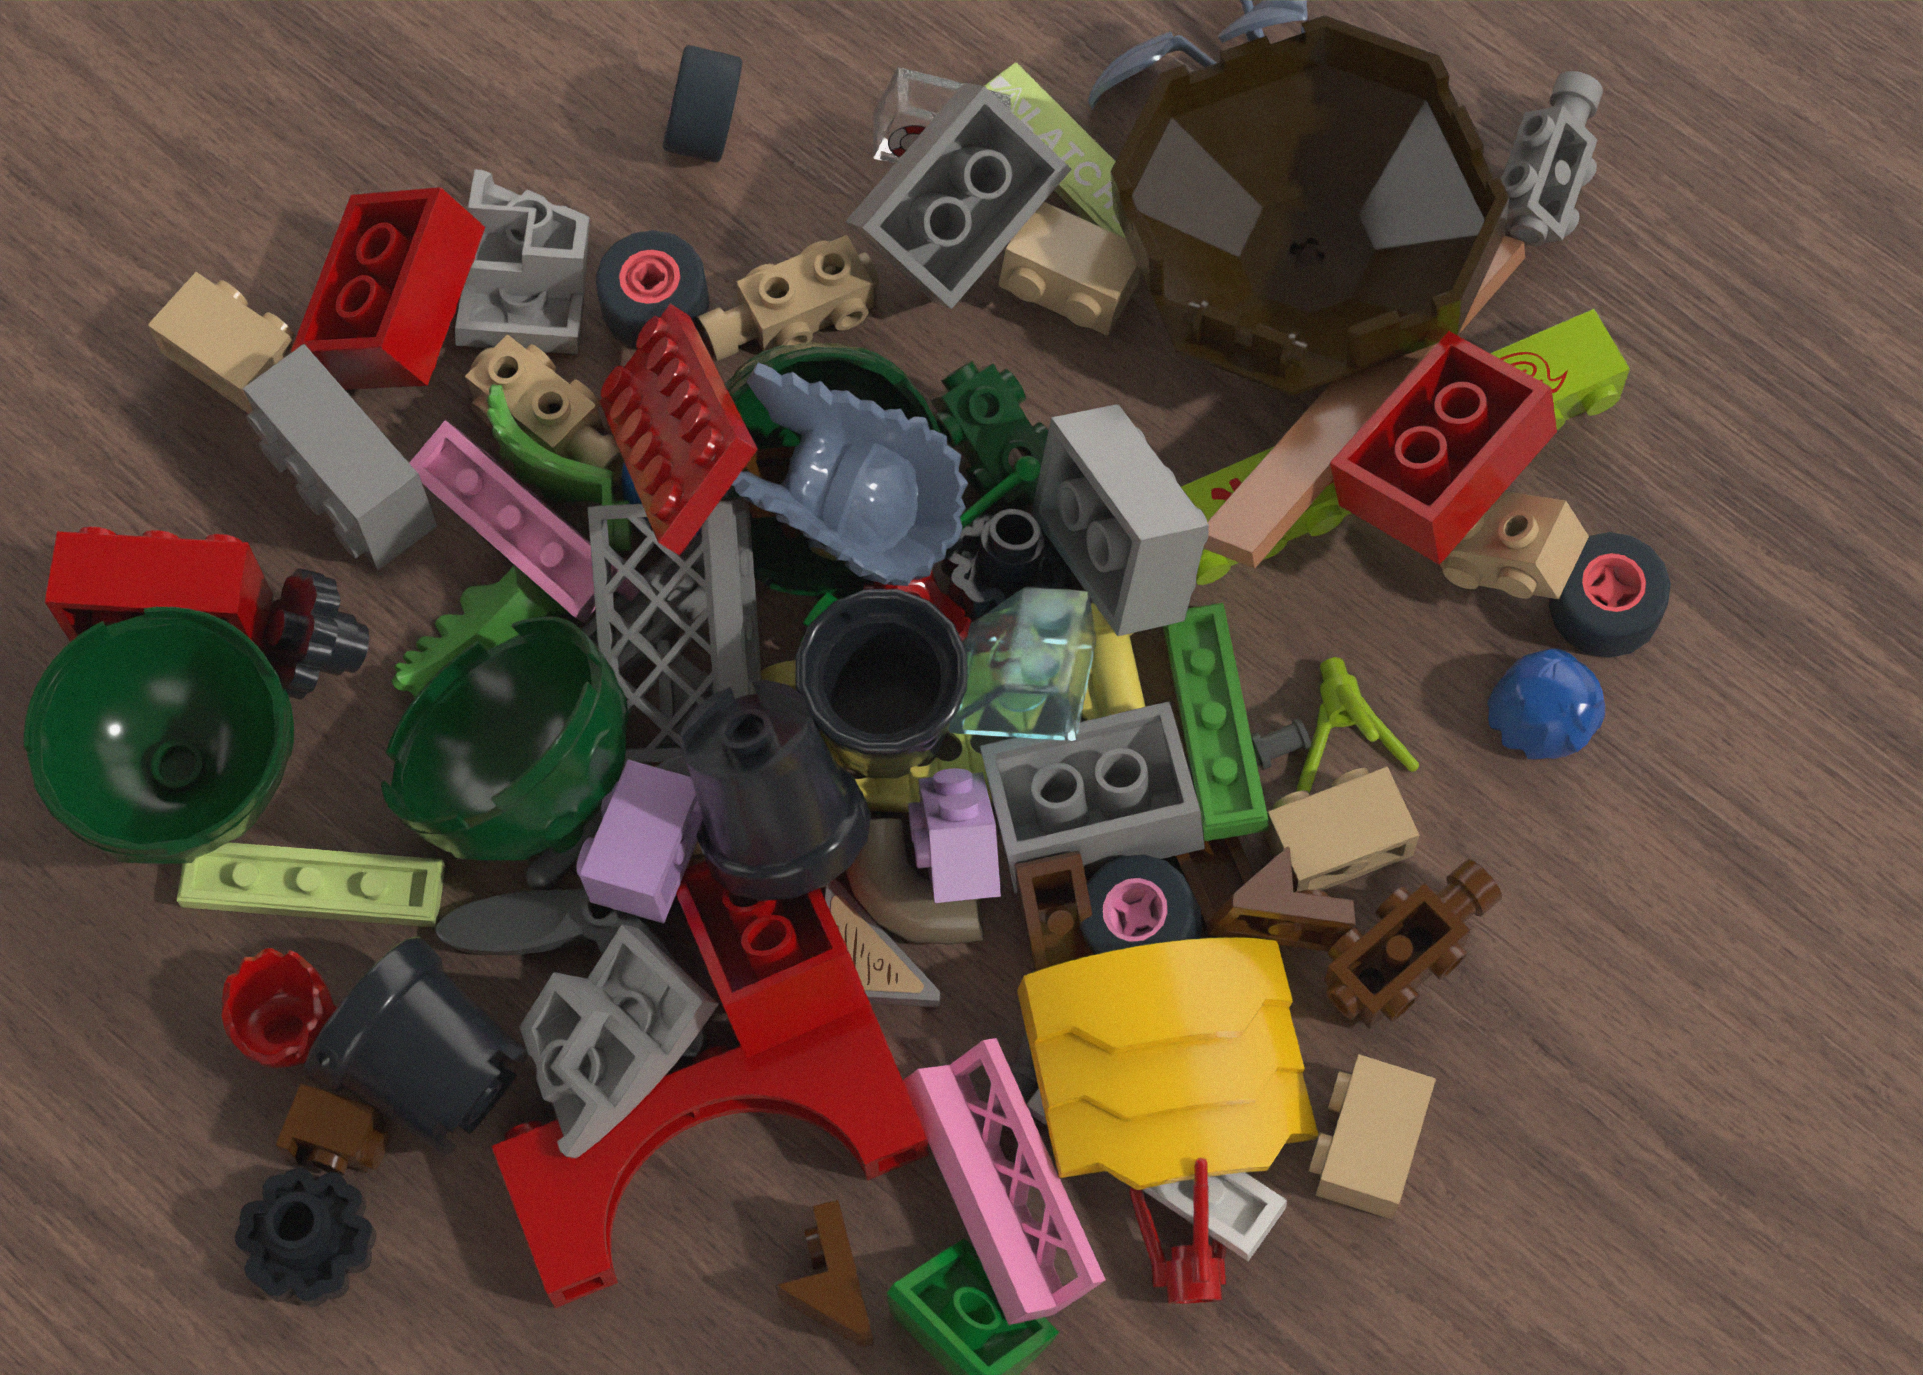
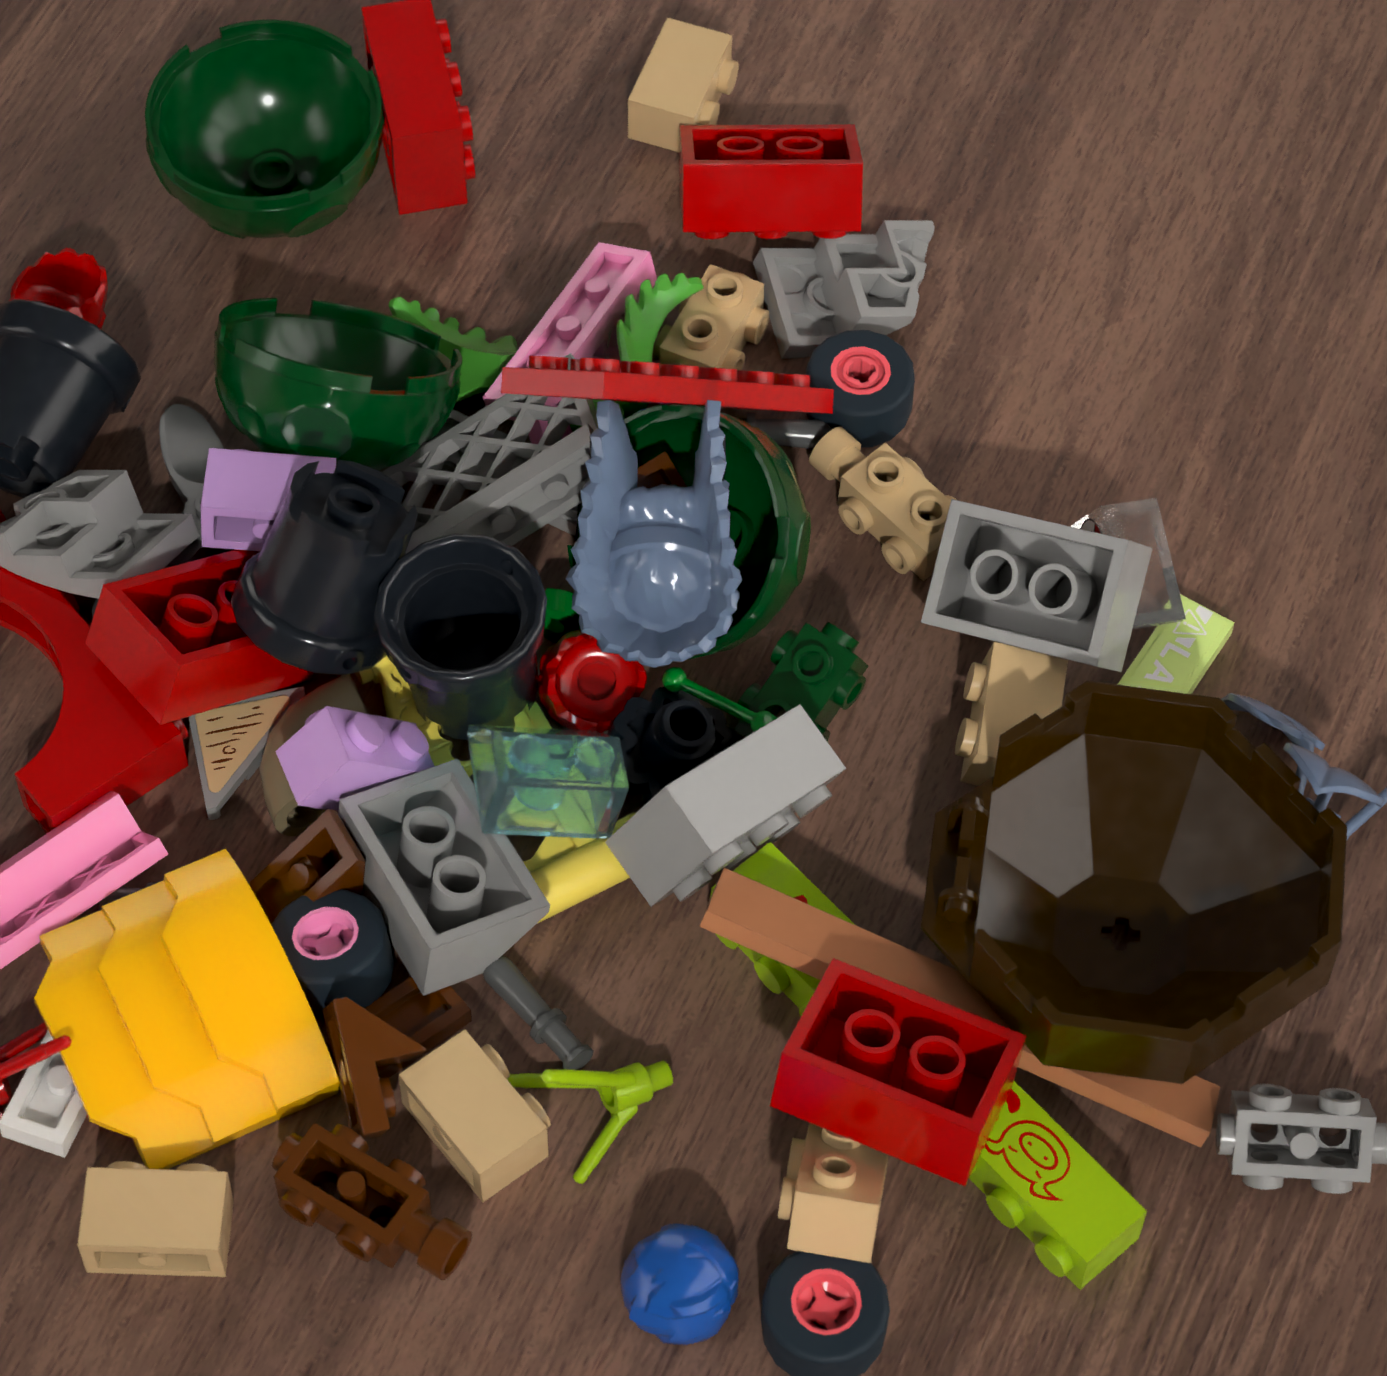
camera: 70 degrees right, 10 degrees down
(310, 634) = (416, 226): black plant -> none
(315, 884) = (192, 298): yellowish green tile -> none
(338, 458) = (590, 186): light grey brick -> none
(702, 103) = (1066, 367): black wheel -> none
(1215, 724) = (560, 969): bright green tile -> none

